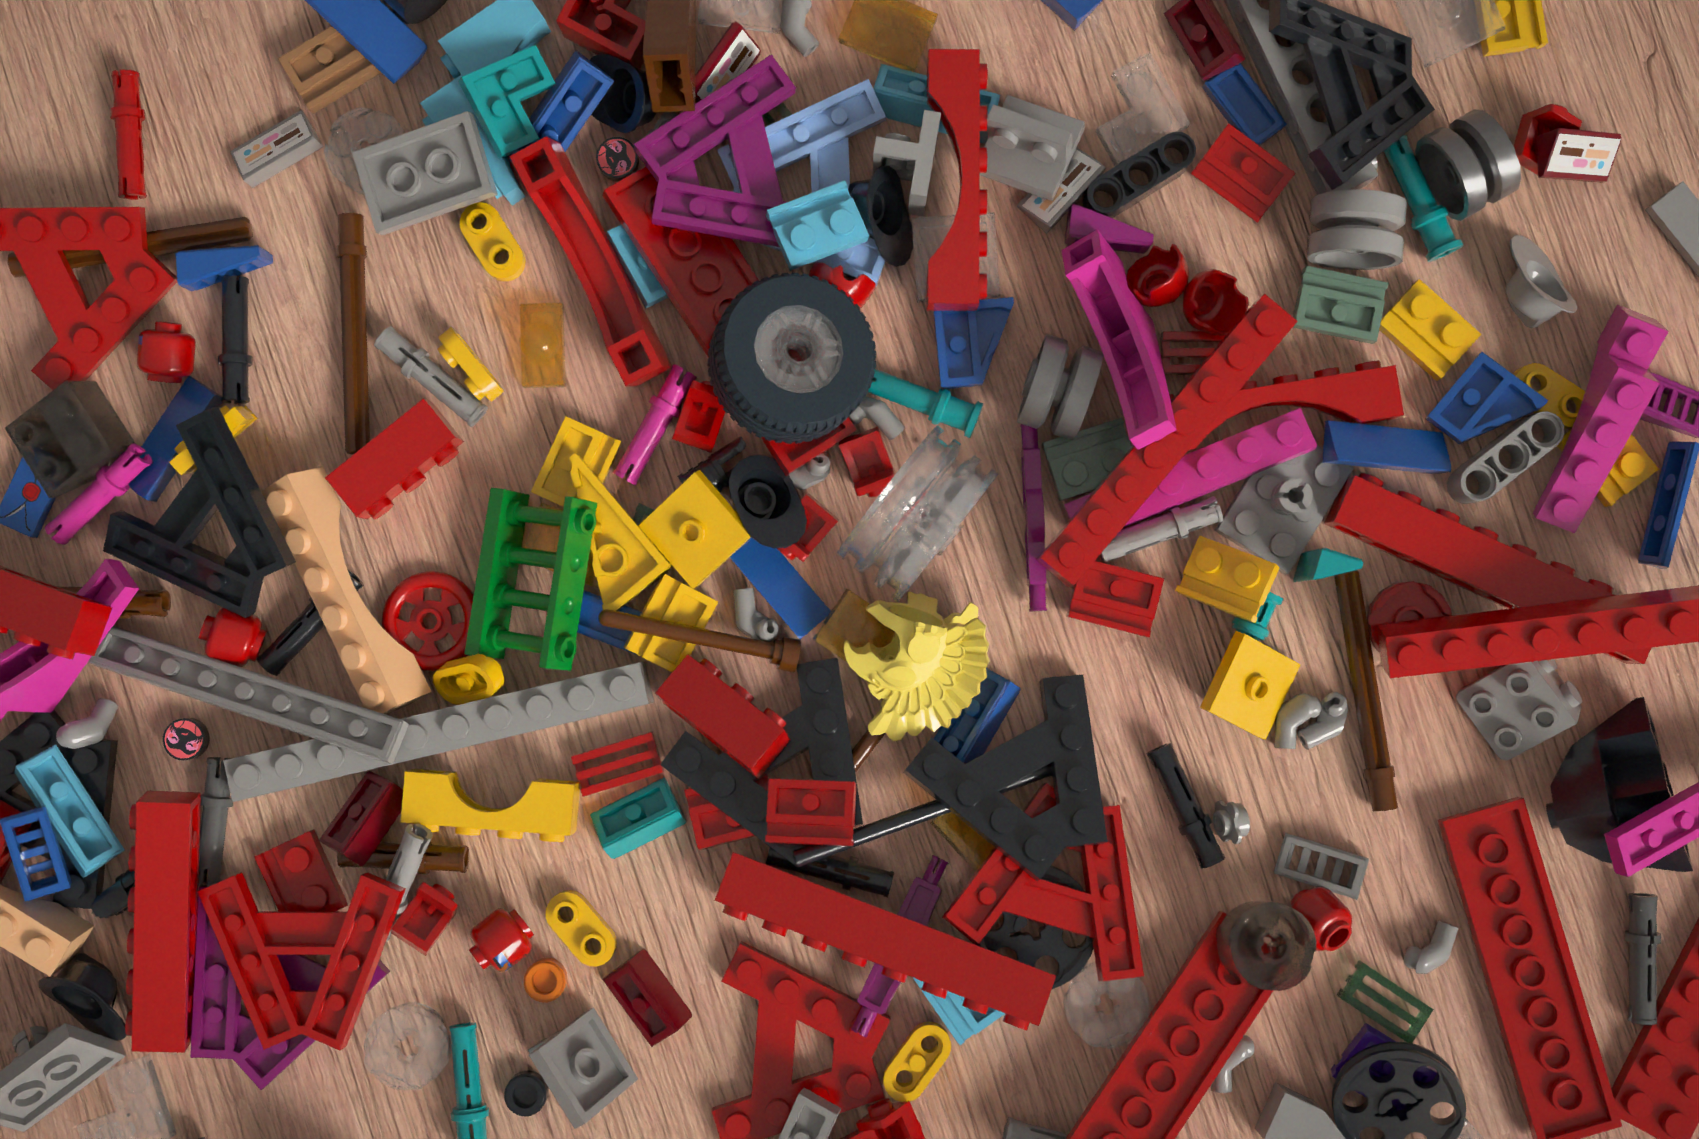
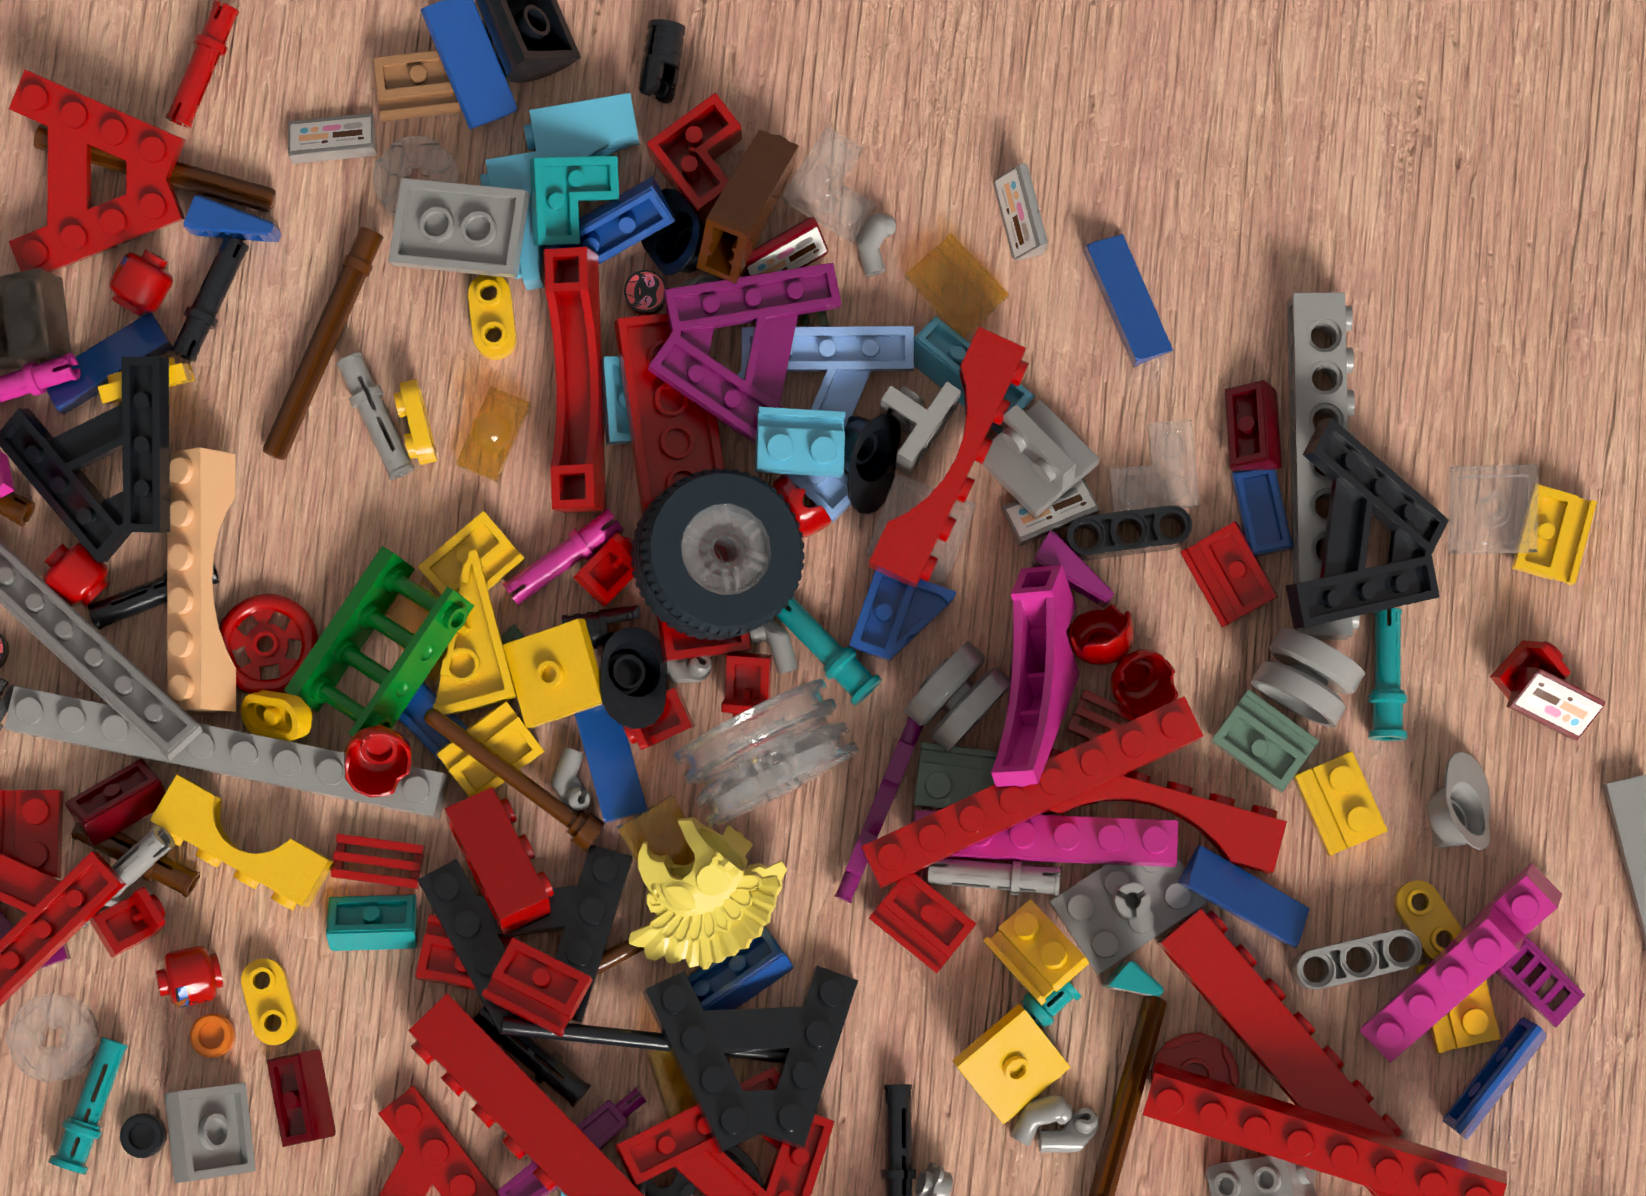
camera: 20 degrees right, 5 degrees down
(395, 460) = (305, 480): red brick -> none
(575, 680) = (376, 761): none -> red hair
(1469, 164) = (1441, 663): flat silver wheel -> none
(1483, 401) = (1359, 895): blue wing -> none

